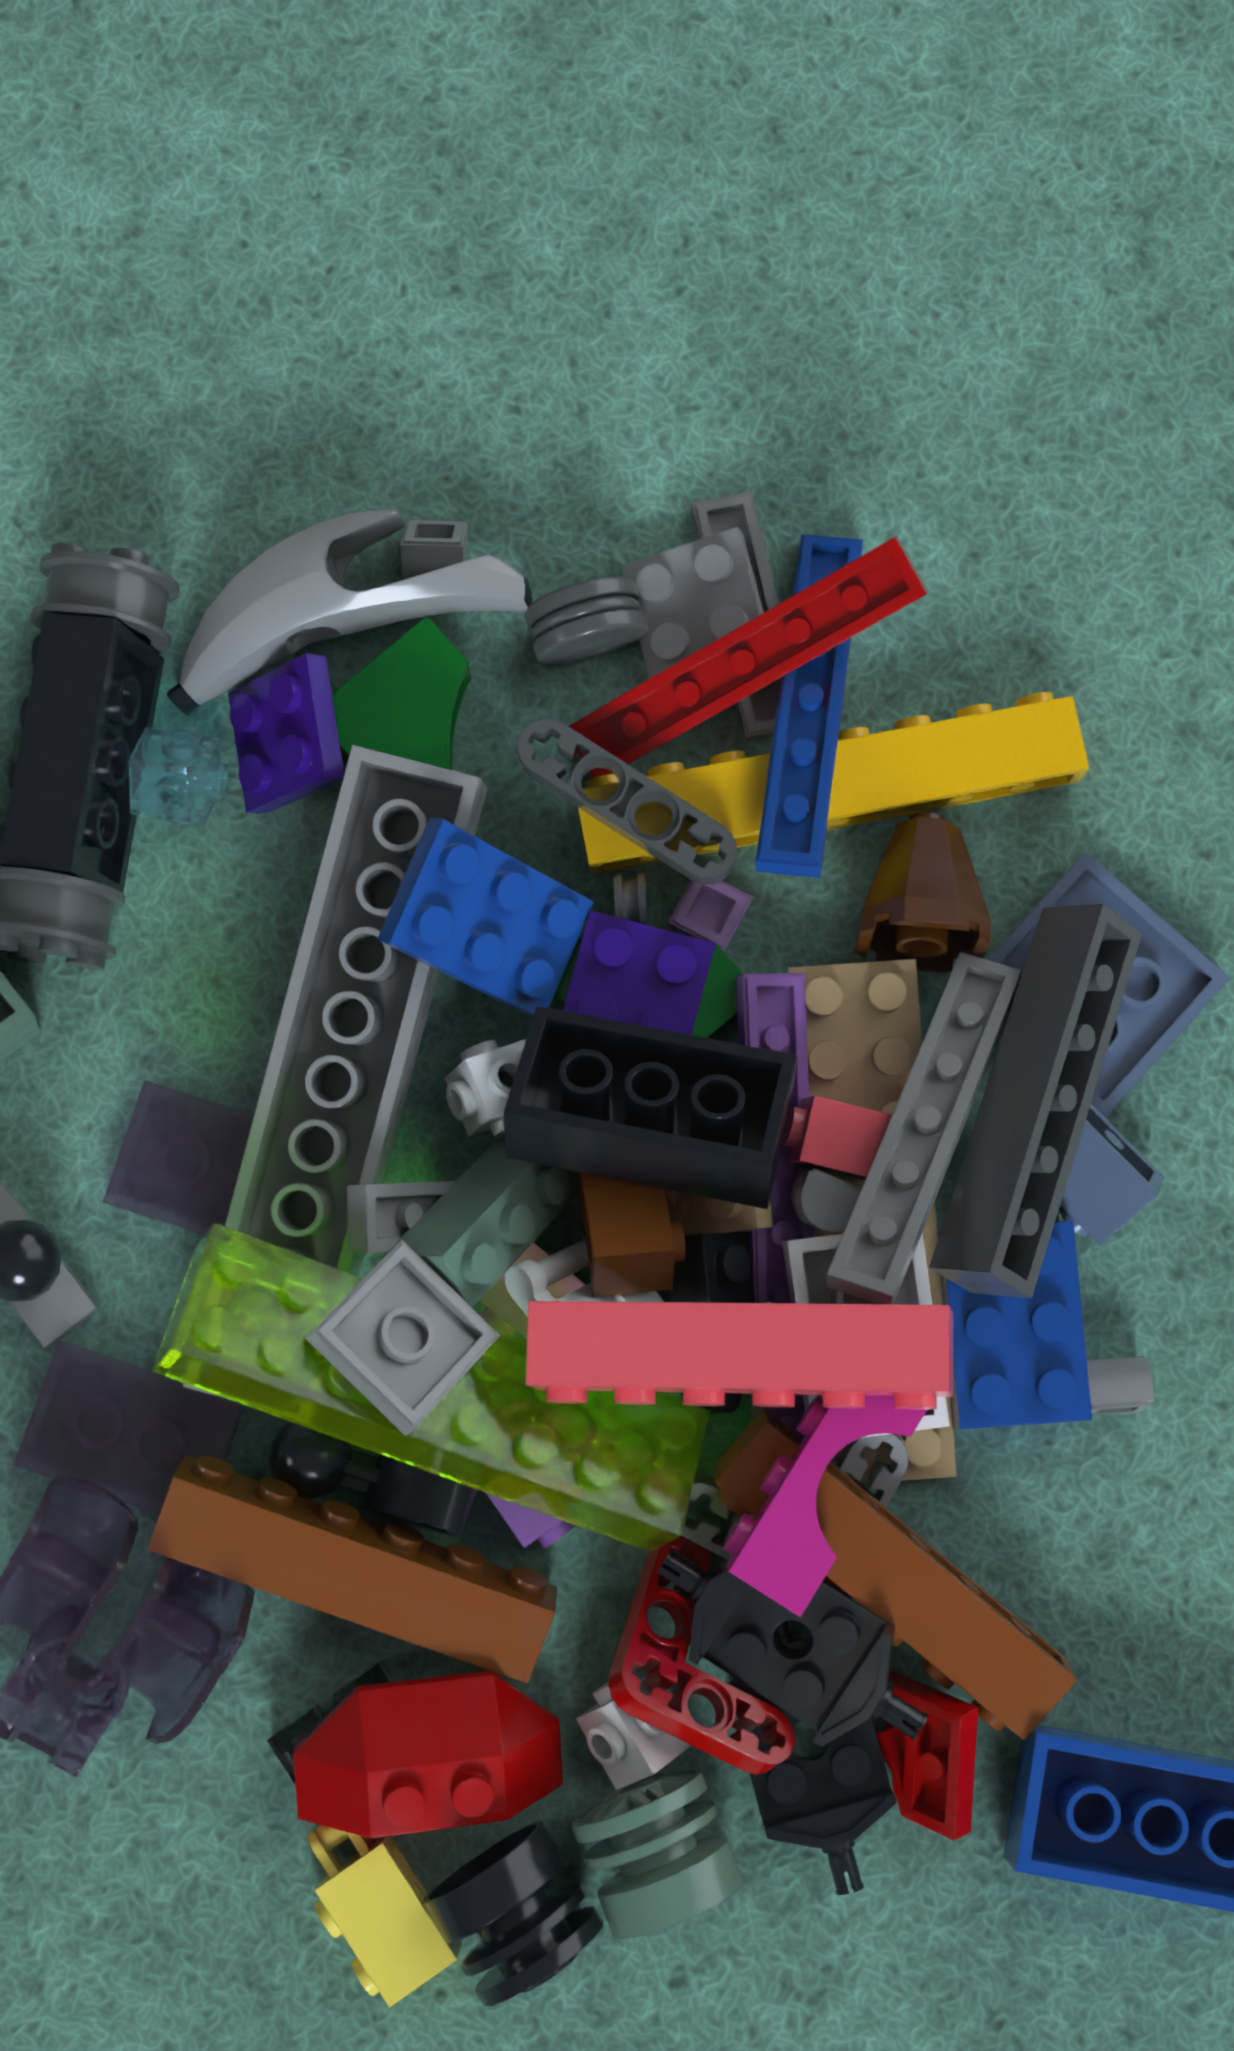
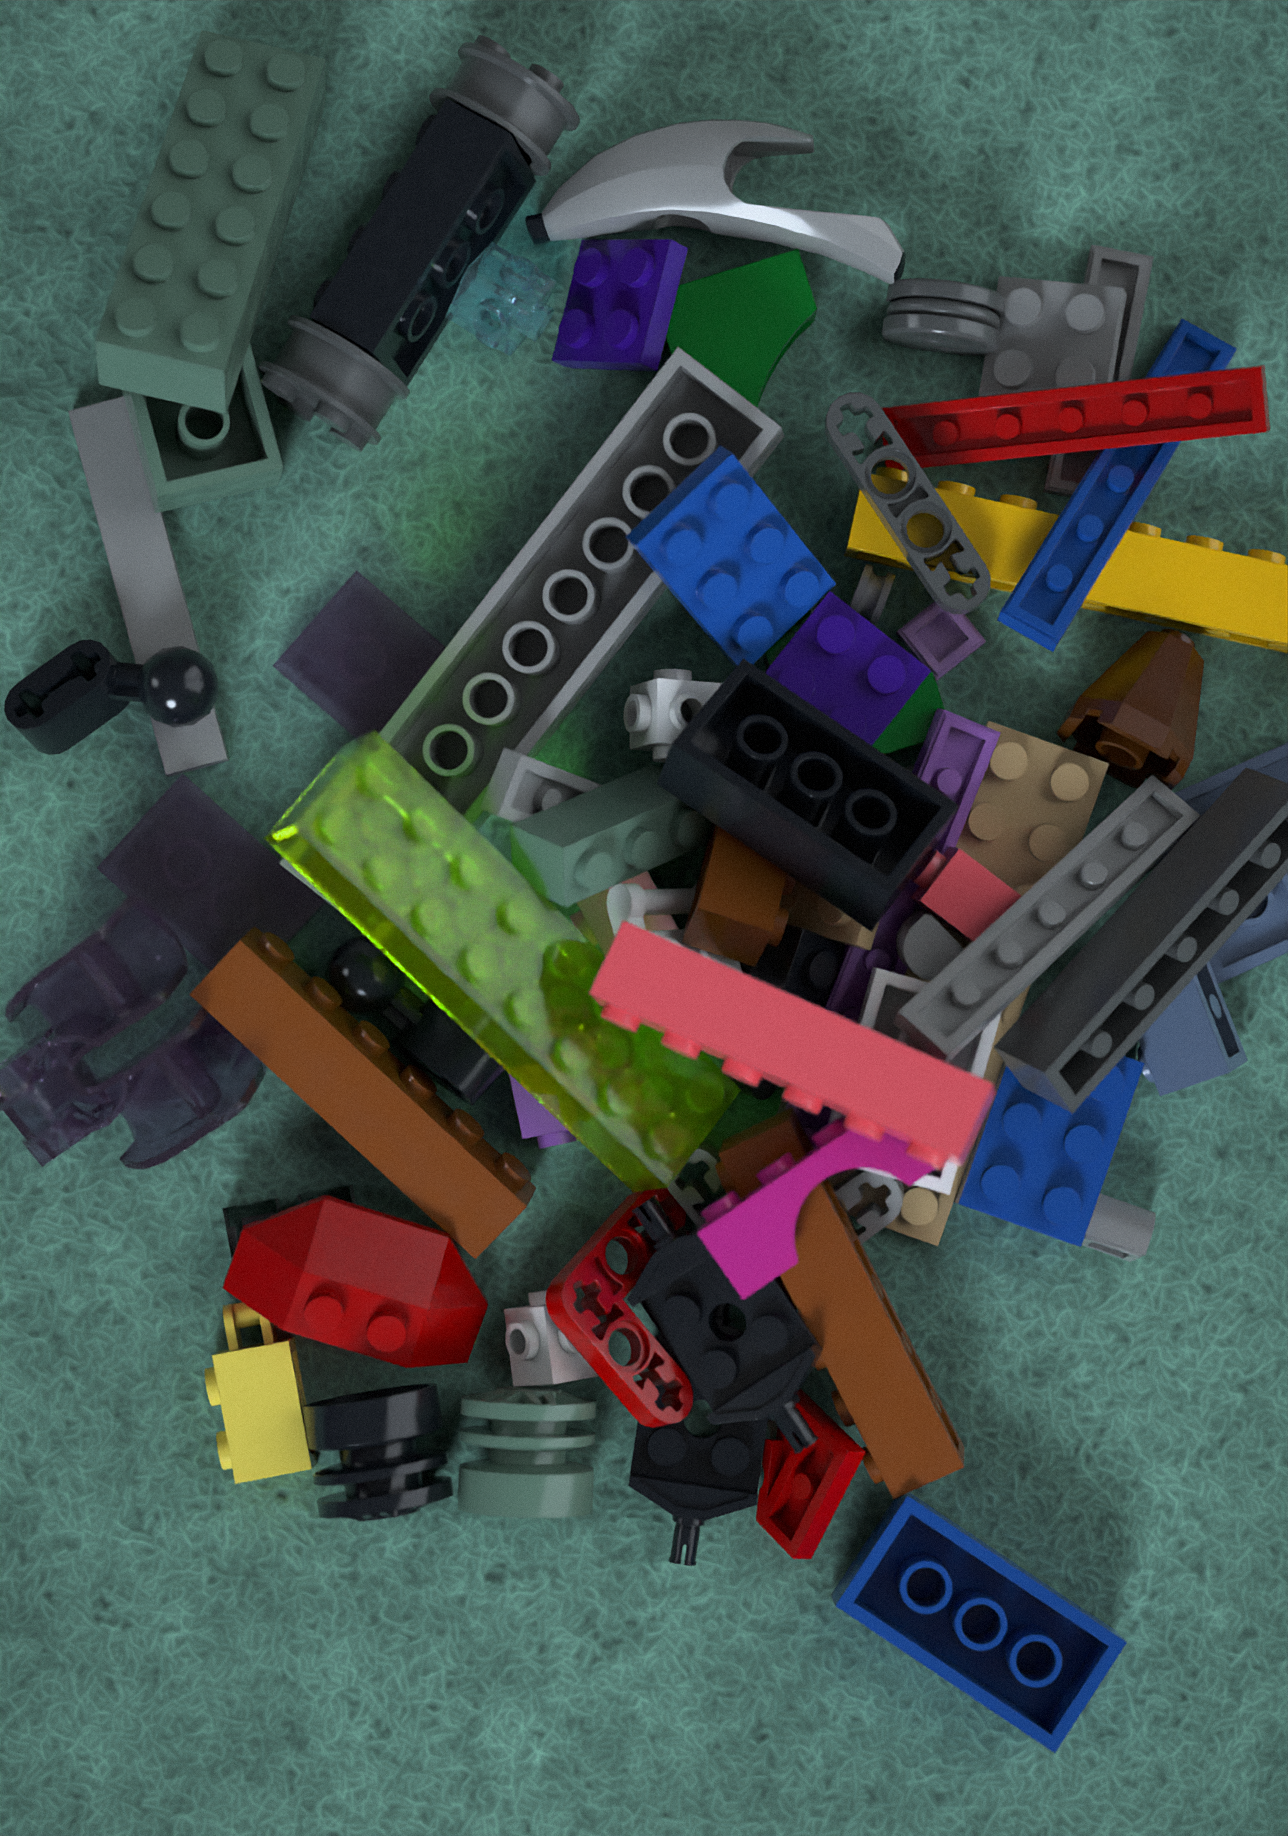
camera: 20 degrees right, 5 degrees up
(403, 1337) = (498, 904): light grey tile -> none
(432, 546) = (831, 183): light grey brick -> none

